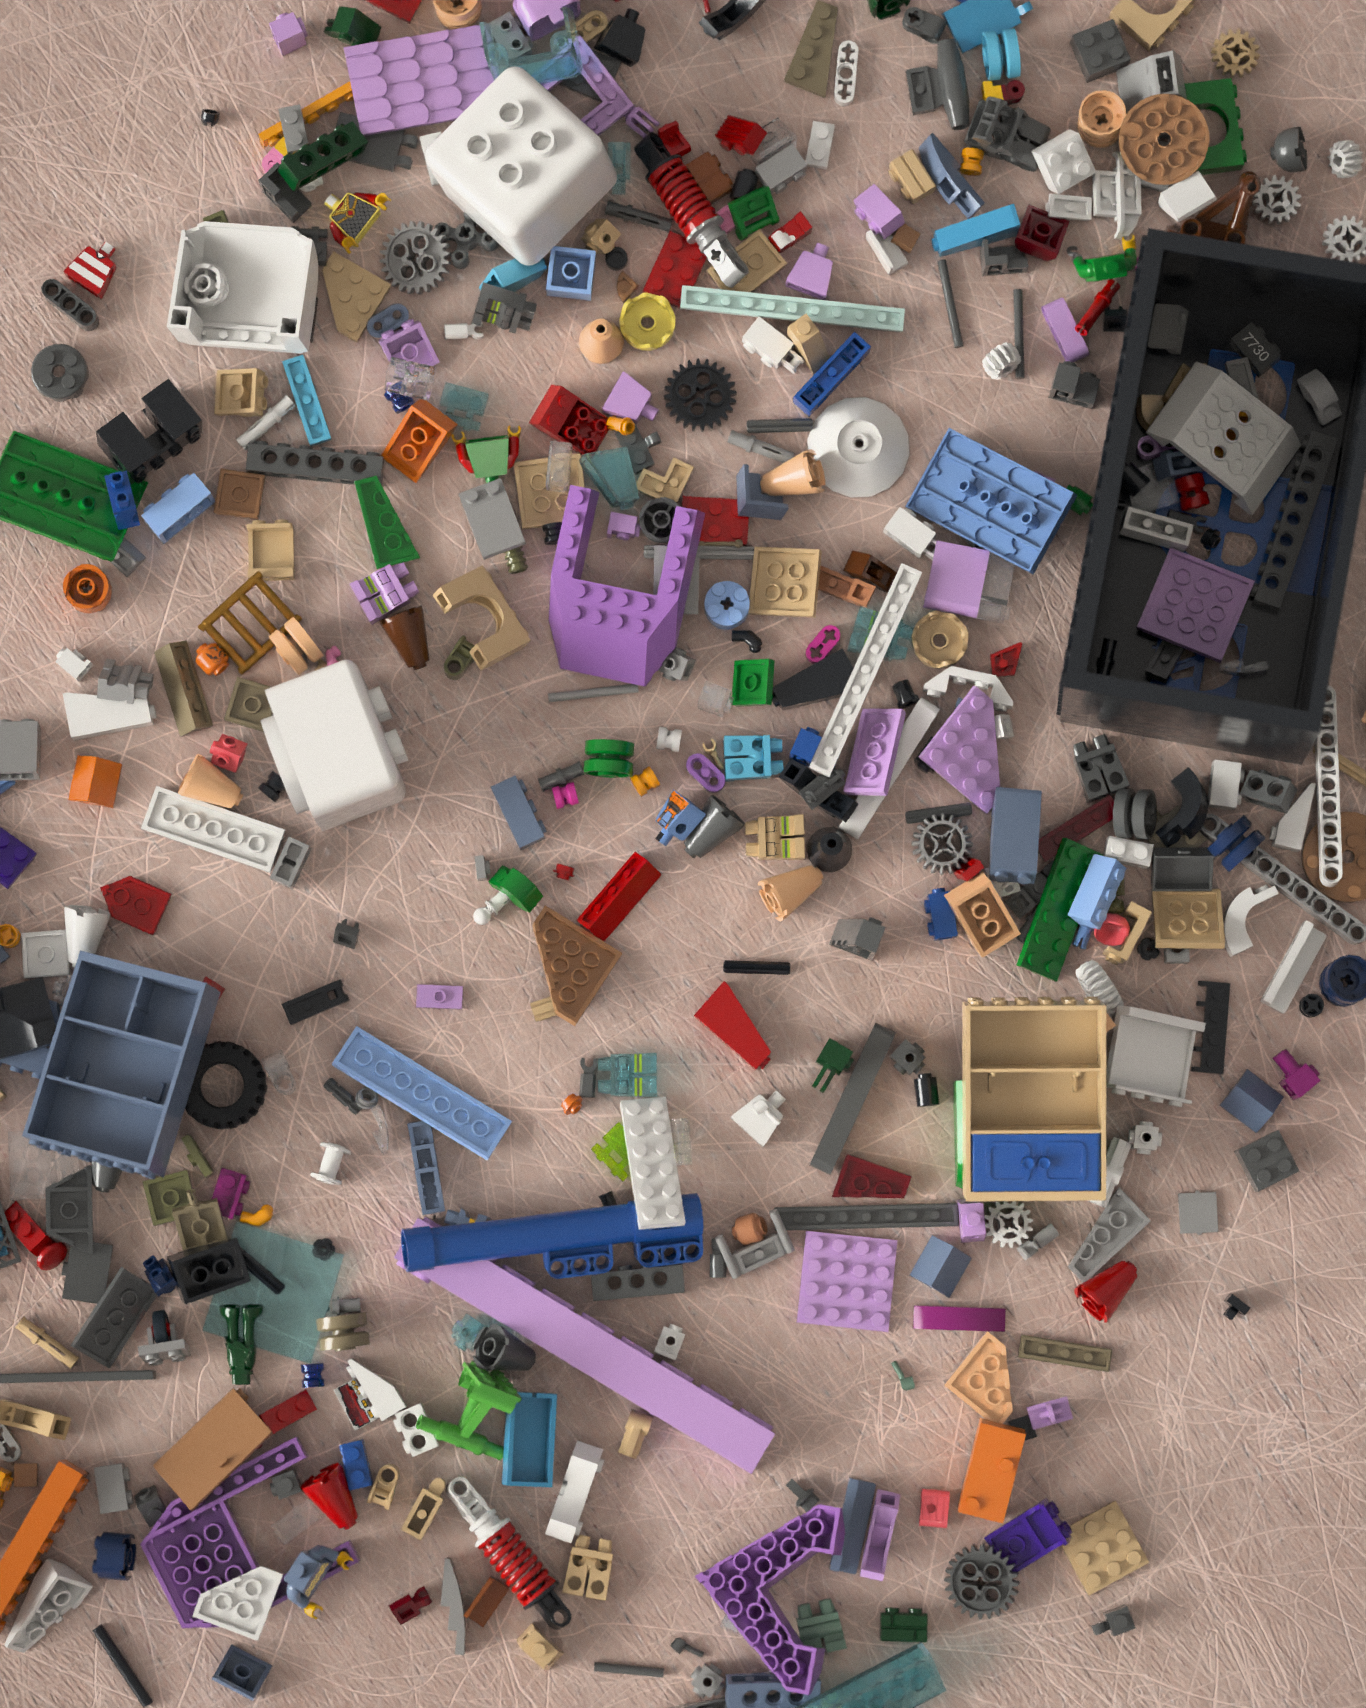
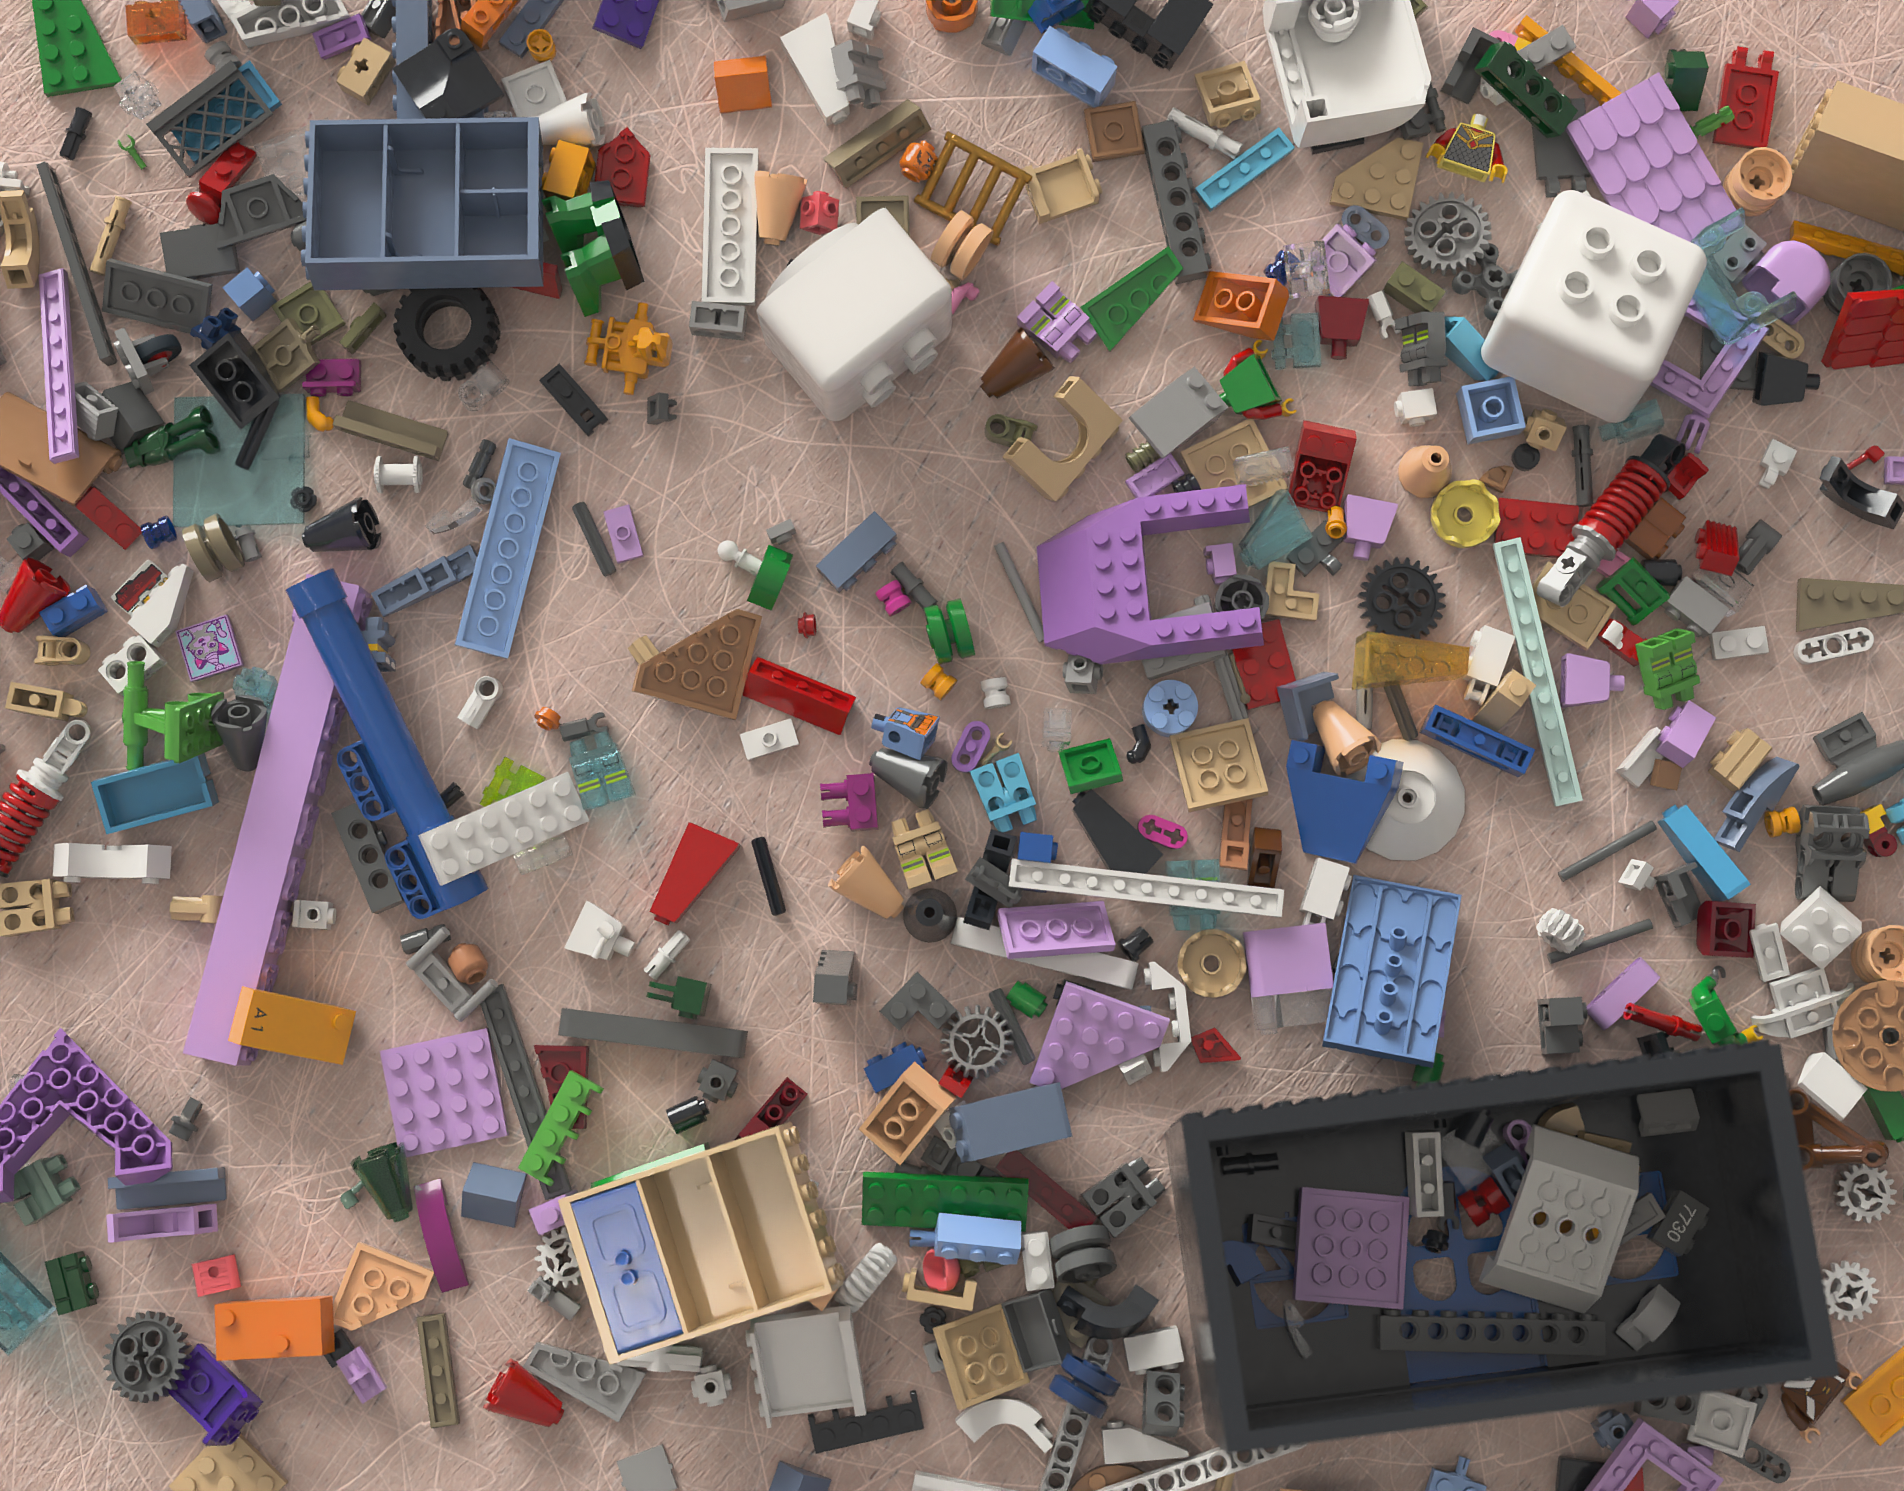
camera: 75 degrees right, 0 degrees up
(129, 945) = (569, 171): none -> light orange brick
(139, 1237) = (251, 293): none -> medium blue brick
(148, 1413) = (58, 366): none -> lavender tile
(193, 1400) = (94, 412): none -> light grey brick
(205, 1374) = (134, 415): none -> dark grey slope
(212, 935) = (604, 258): none -> green piece
(287, 942) = (629, 347): none -> light orange piece
(290, 1159) = (392, 430): none -> dark tan panel
(362, 1221) = (344, 529): none -> black cone
(395, 19) = (1712, 121): none -> bright green axle
(422, 1363) = (209, 648): none -> tile
(435, 1021) = (594, 538): none -> dark grey axle
(453, 300) = (1413, 289): none -> olive brick
(460, 366) = (1340, 322): none -> dark red torso
(536, 556) = (1155, 477): none -> lavender plate
(542, 1155) = (479, 704): none -> white piece
(548, 330) = (1415, 407): none -> white brick
(646, 932) = (769, 739): none -> white plate
(684, 64) = (1776, 461): none -> white plate
(722, 873) = (861, 797): none -> magenta brick
(745, 100) = (1758, 542): none -> dark grey piece
(749, 412) = (1399, 660): none -> clear yellow wedge
(756, 1381) = (292, 1025): none -> light orange brick
(794, 1067) = (667, 954): none -> white axle
(822, 206) = (1668, 667): none -> bright green hips
(852, 504) = (1336, 812): none -> blue wedge
(892, 880) = (915, 997): none -> dark grey brick
(901, 1345) = (387, 1179): none -> clear green cone
(903, 1196) = (557, 1126): none -> bright green hinge
(921, 793) = (1027, 999): none -> green brick
(946, 1022) = (775, 1109): none -> dark red slope
(977, 286) = (1638, 875): none -> white tile

